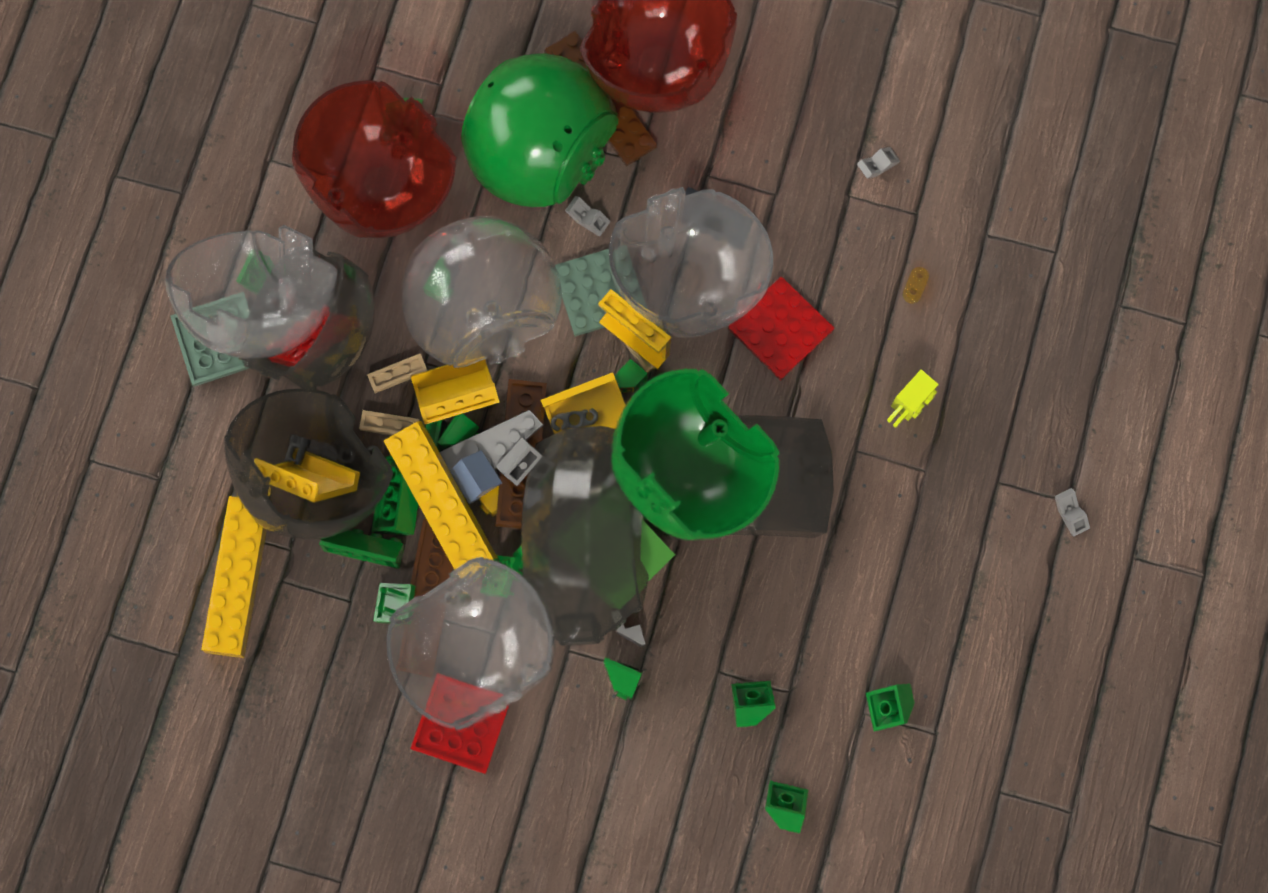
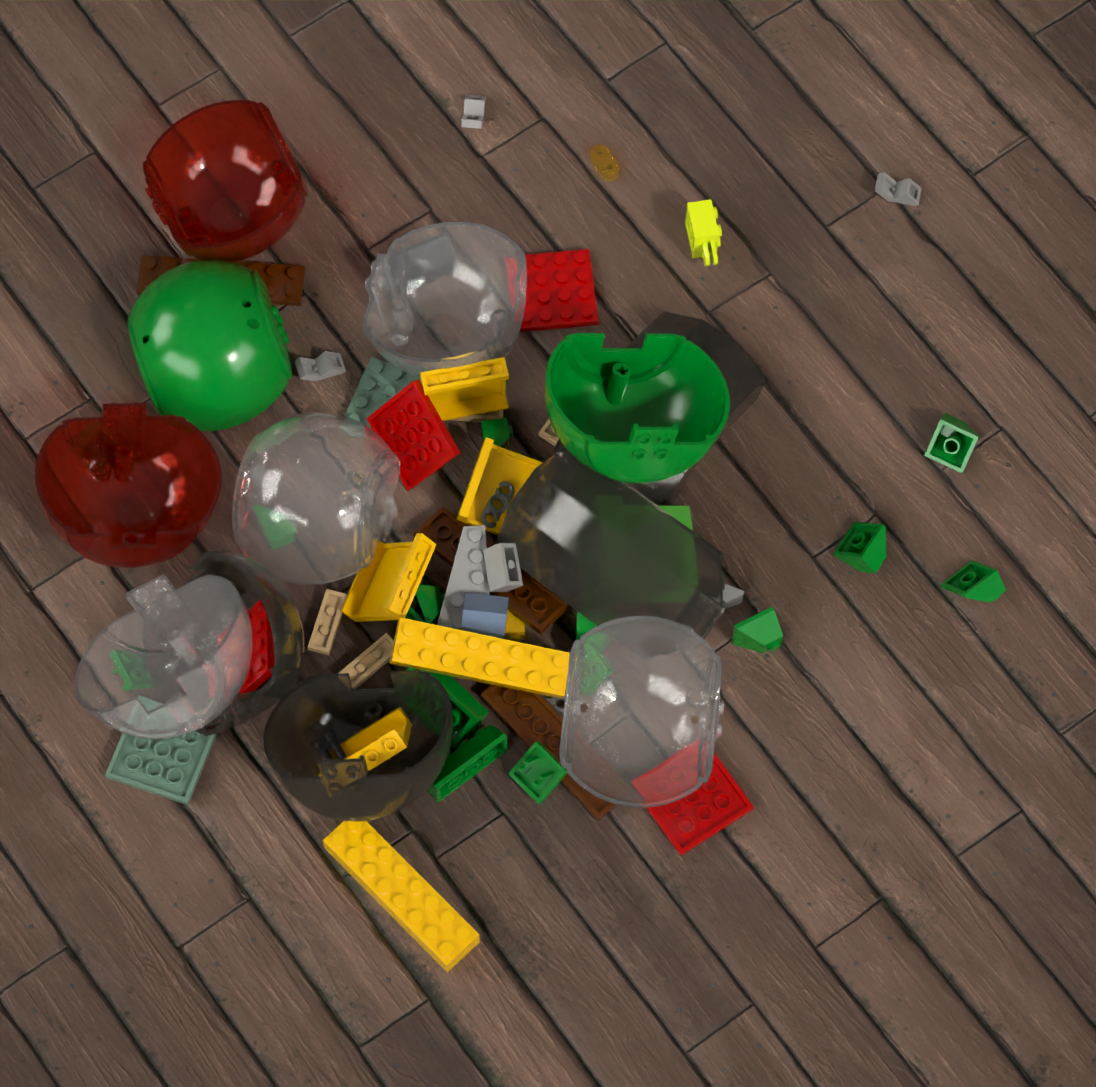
camera: 50 degrees left, 10 degrees down
(575, 321) = (414, 434): none -> red plate

